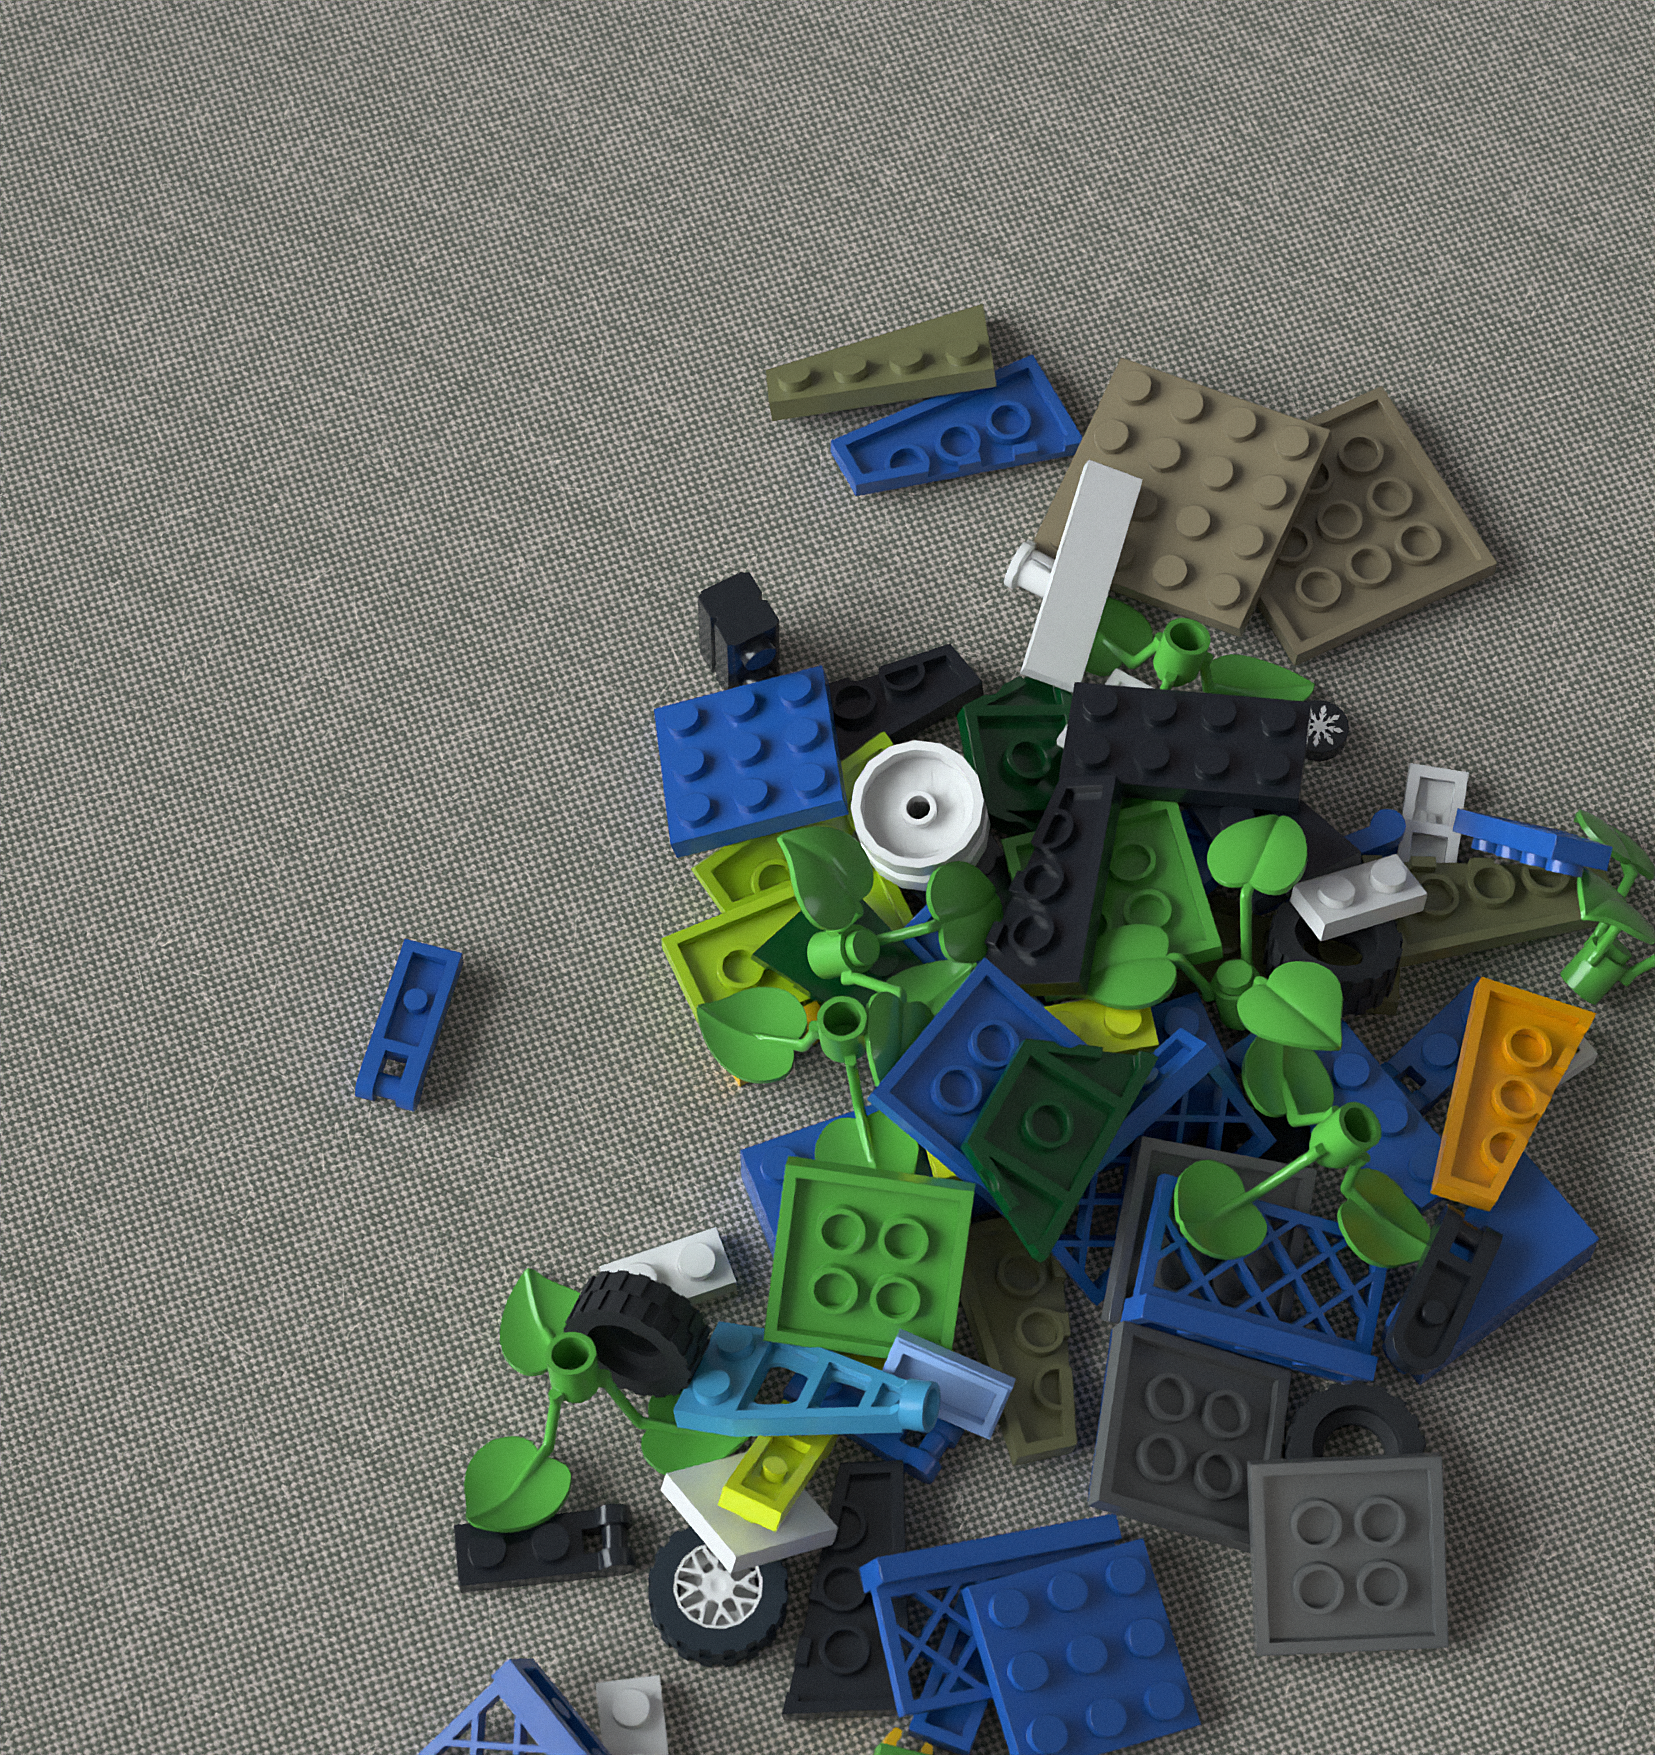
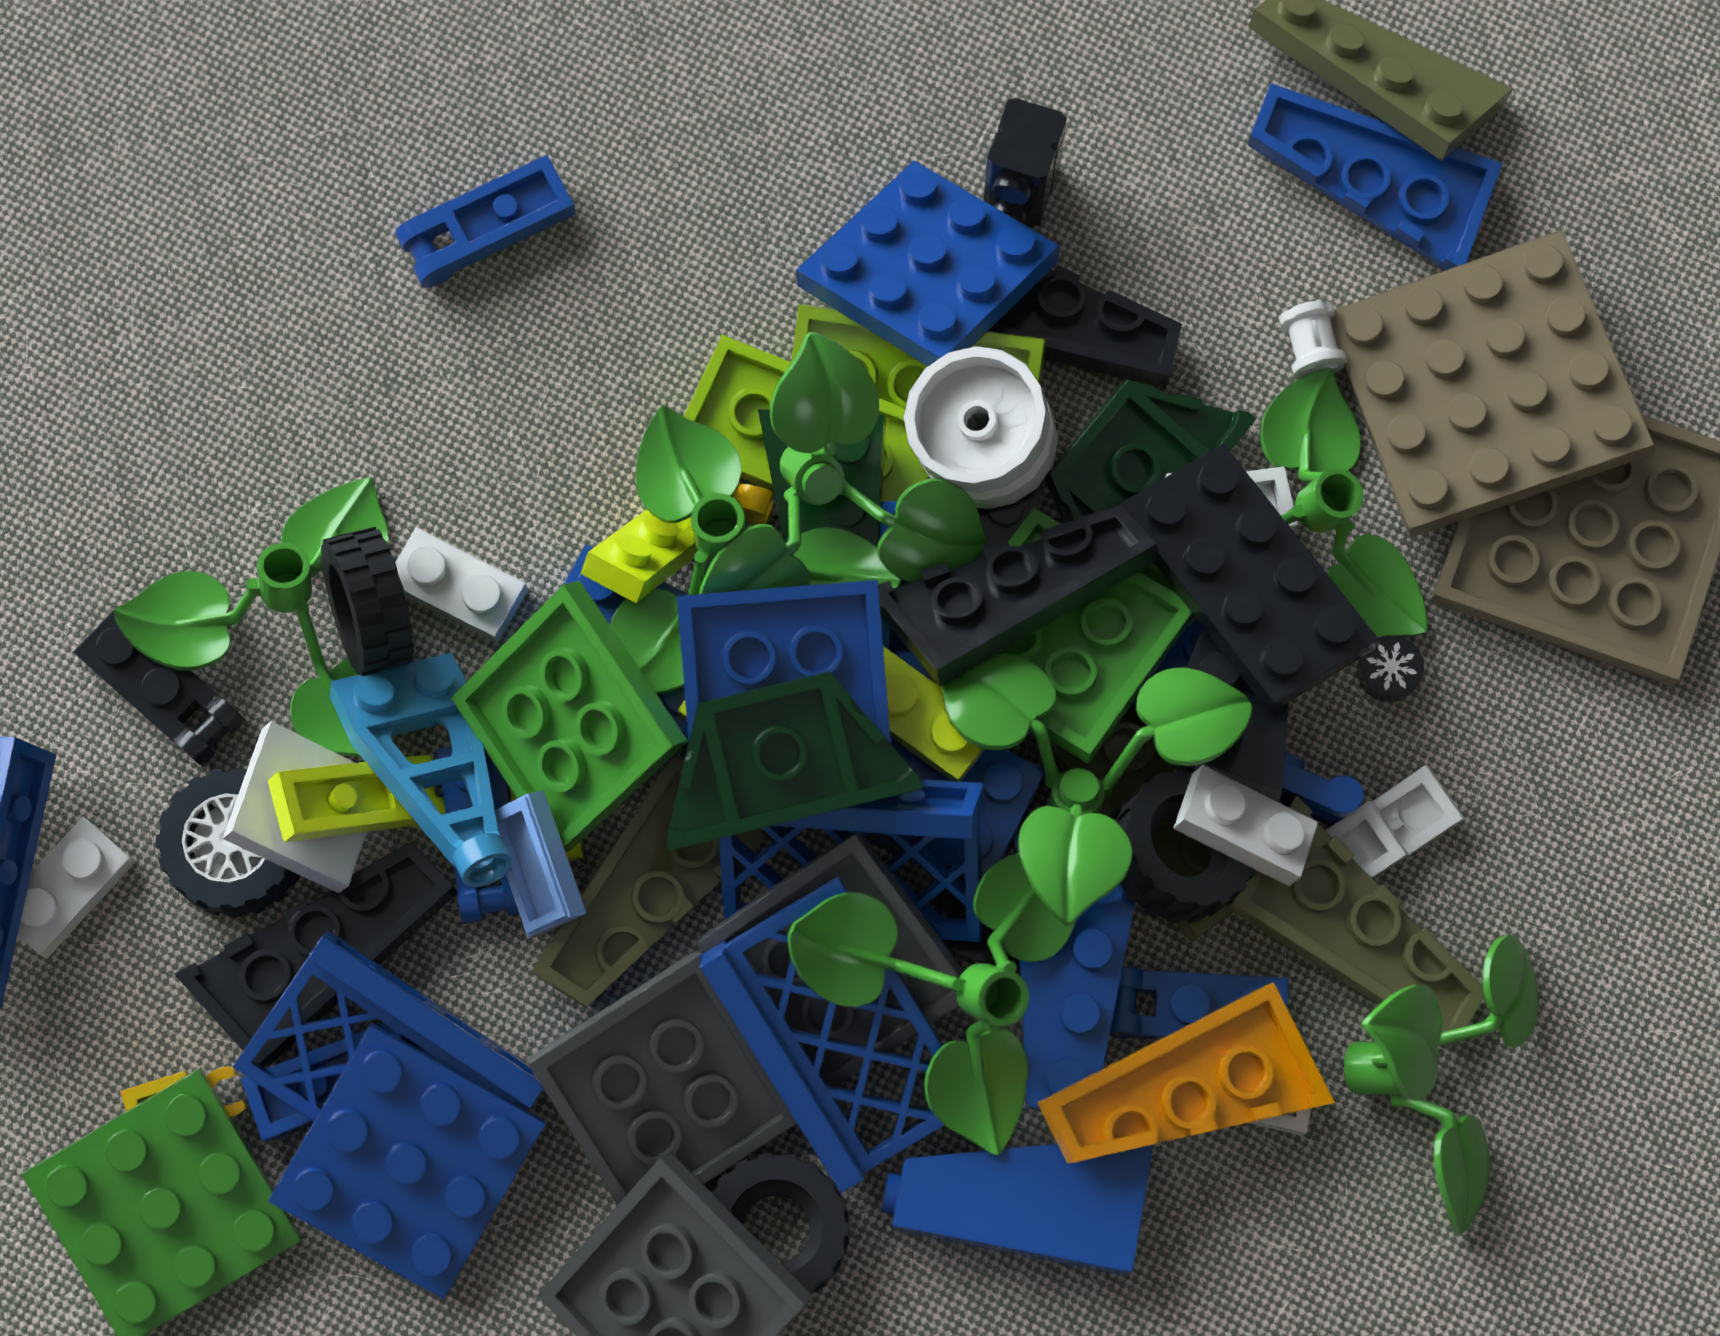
camera: 50 degrees right, 10 degrees up
(784, 1115) = (640, 555): none -> neon yellow plate
(1081, 576) = (1331, 368): white tile -> none
(1440, 1293) = (955, 1184): black plate -> none
(1532, 843) = (1426, 927): blue wing -> none

